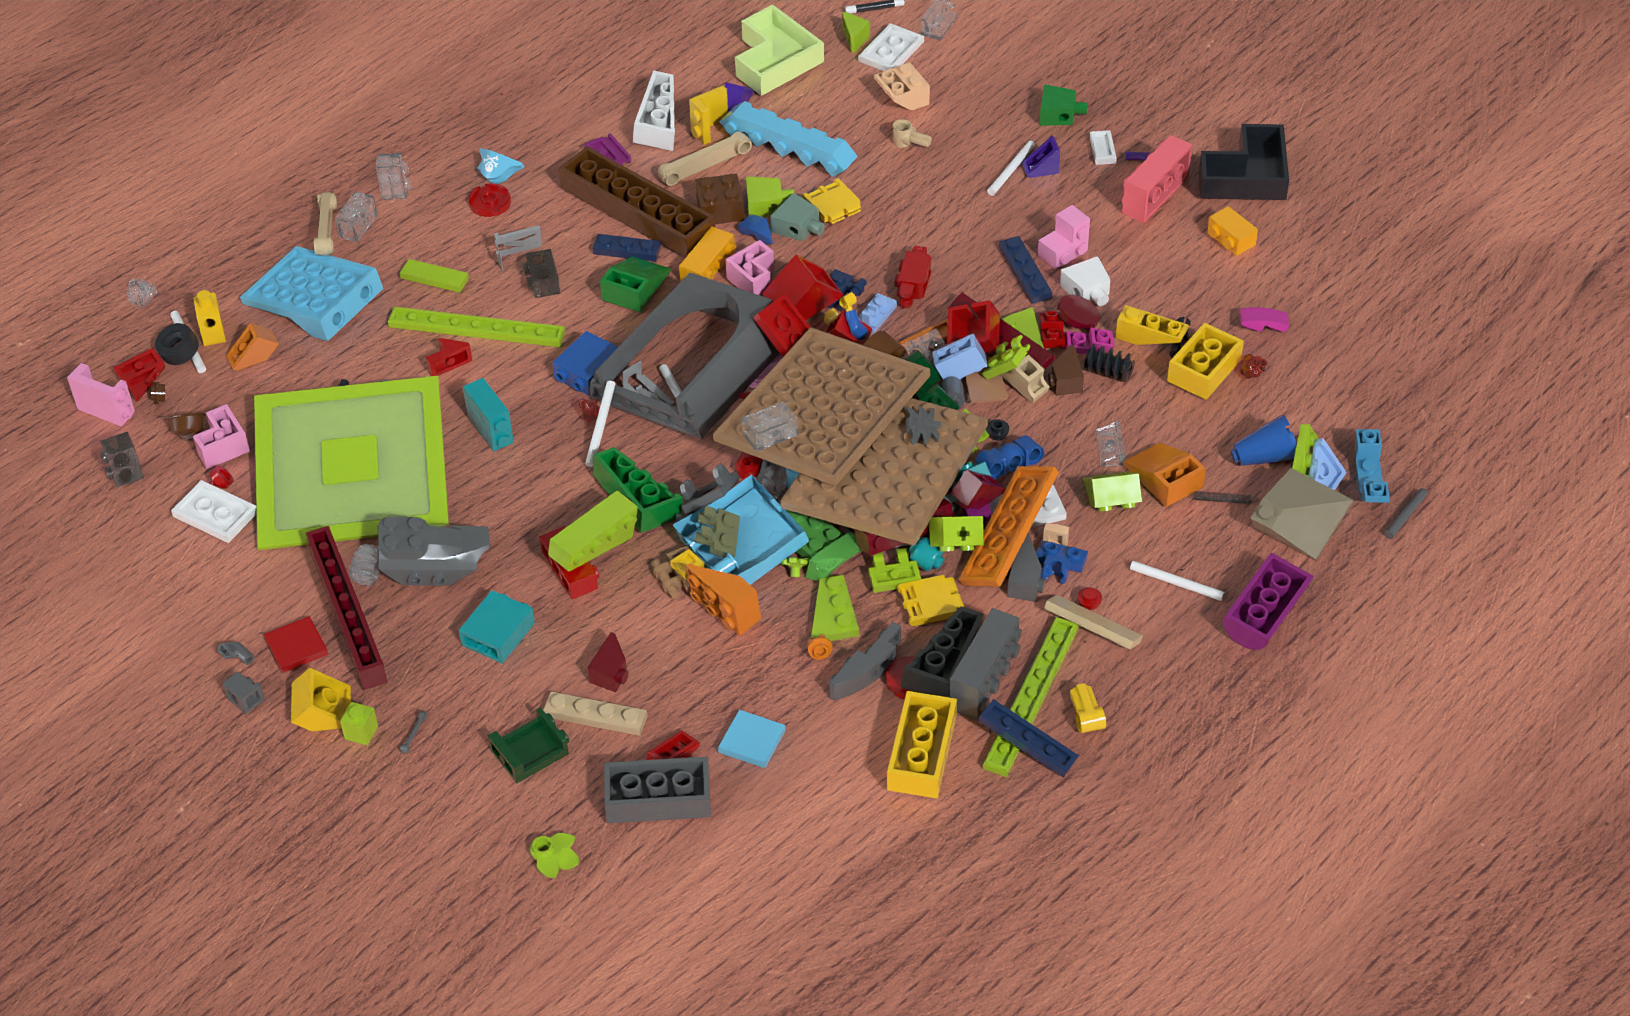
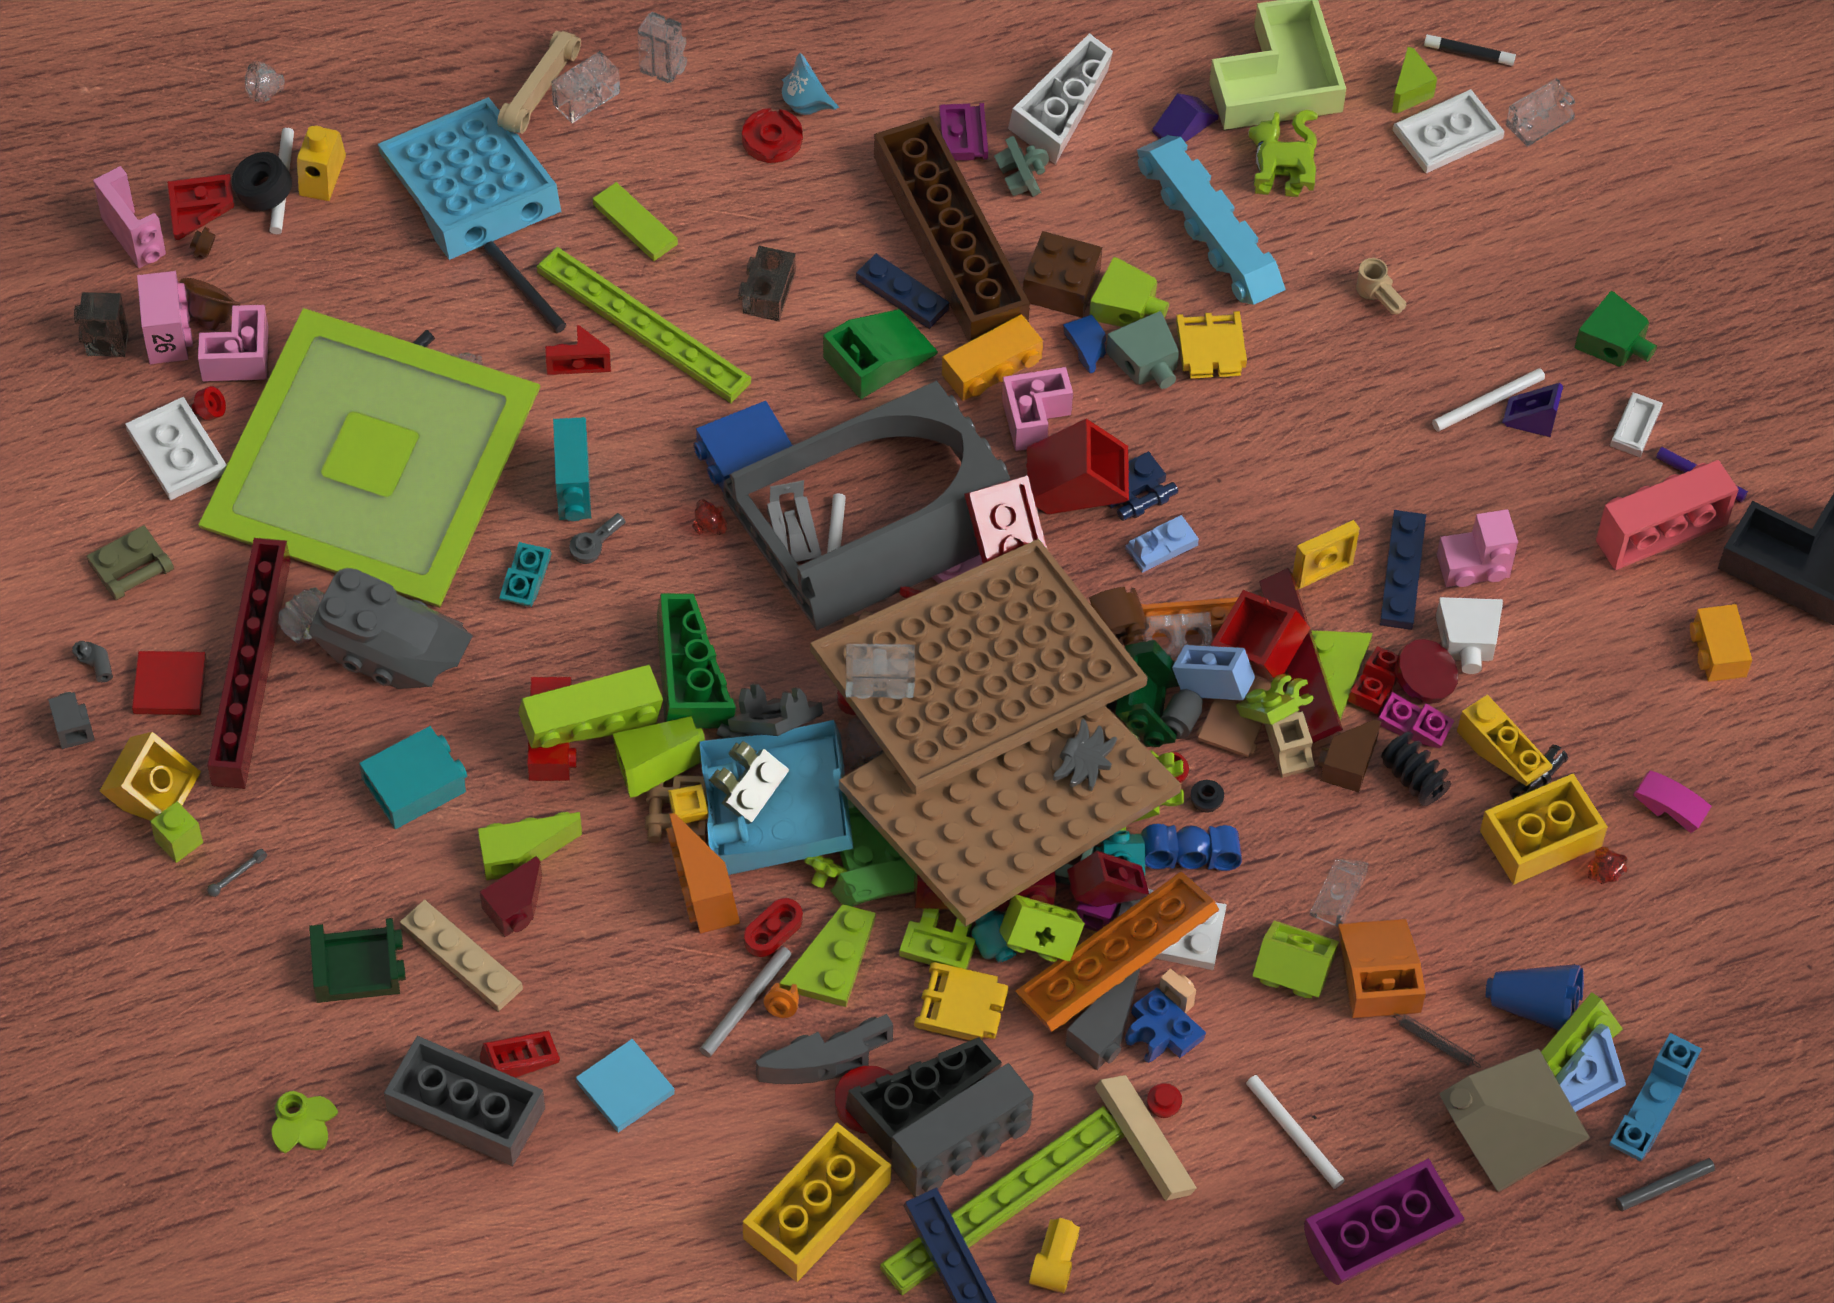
camera: 25 degrees right, 10 degrees up
(161, 439) = (164, 317): none -> bright pink brick
(219, 584) = (125, 556): none -> olive plate
(252, 347) = (350, 228): orange slope -> none
(380, 334) = (525, 286): none -> black bar
(493, 487) = (526, 574): none -> teal slope
(523, 245) = (754, 213): light grey piece -> none
(523, 457) = (588, 546): none -> dark grey plate
(588, 635) = (513, 844): none -> lime slope
(600, 422) = (705, 544): white bar -> none
(646, 545) = (657, 753): none -> lime slope
(658, 153) = (1033, 161): none -> sand green hips
(673, 172) = (1028, 201): tan piece -> none
(707, 111) = (1126, 127): yellow bracket -> none
(784, 615) = (770, 928): none -> red plate
(795, 659) = (745, 1002): none -> light grey bar
(808, 94) = (1284, 158): none -> lime animal
(847, 324) = (1091, 556): torso -> none
(905, 86) = (1417, 205): light nougat slope -> none
(913, 276) = (1244, 511): red hinge -> none
(980, 273) = (1325, 554): none -> yellow plate

